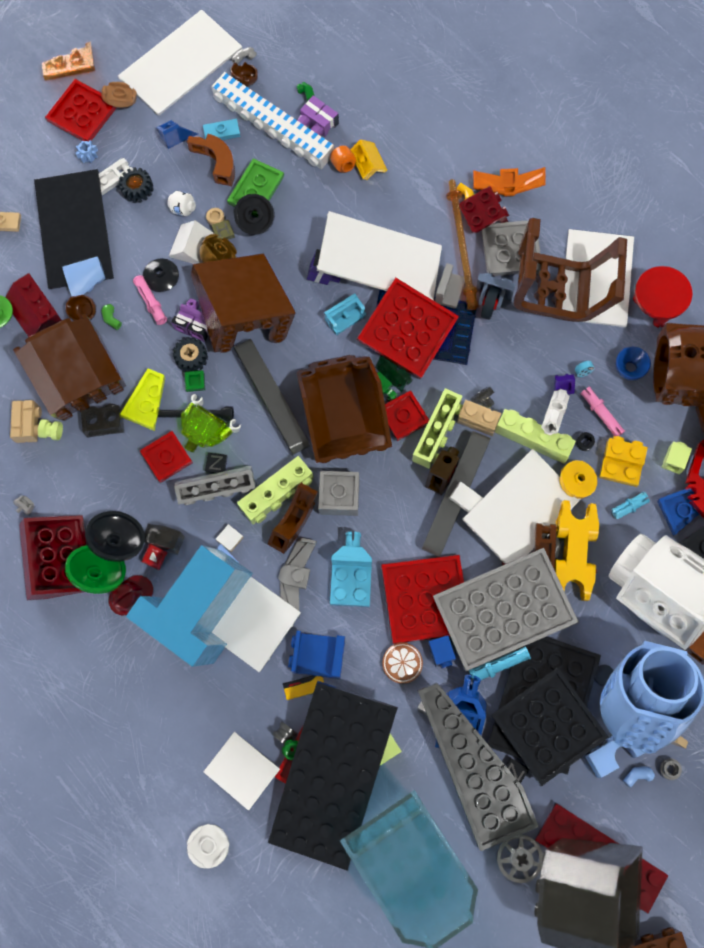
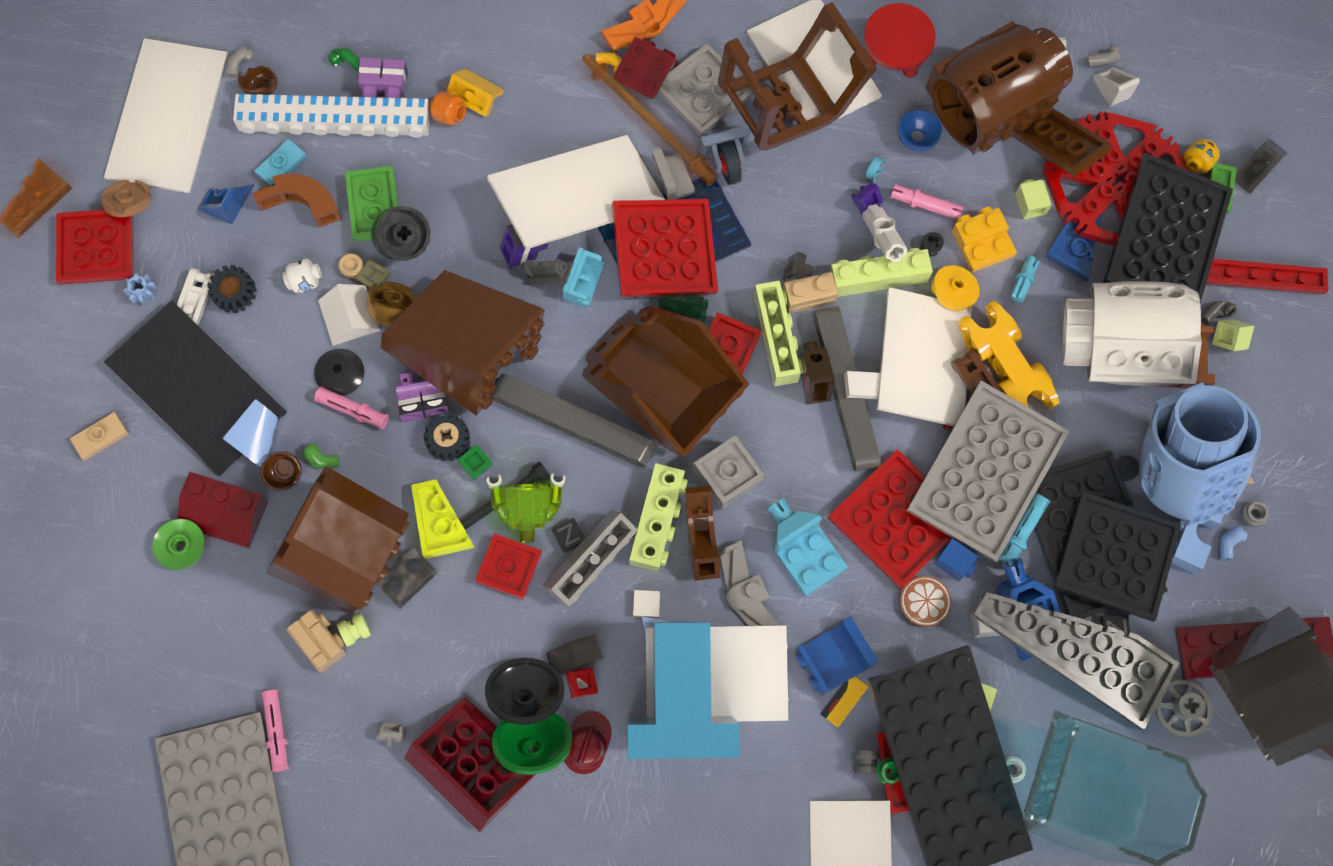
camera: 45 degrees left, 0 degrees up
(325, 296) = (547, 271): none -> dark grey hinge
(374, 802) = (1020, 768): none -> white plate

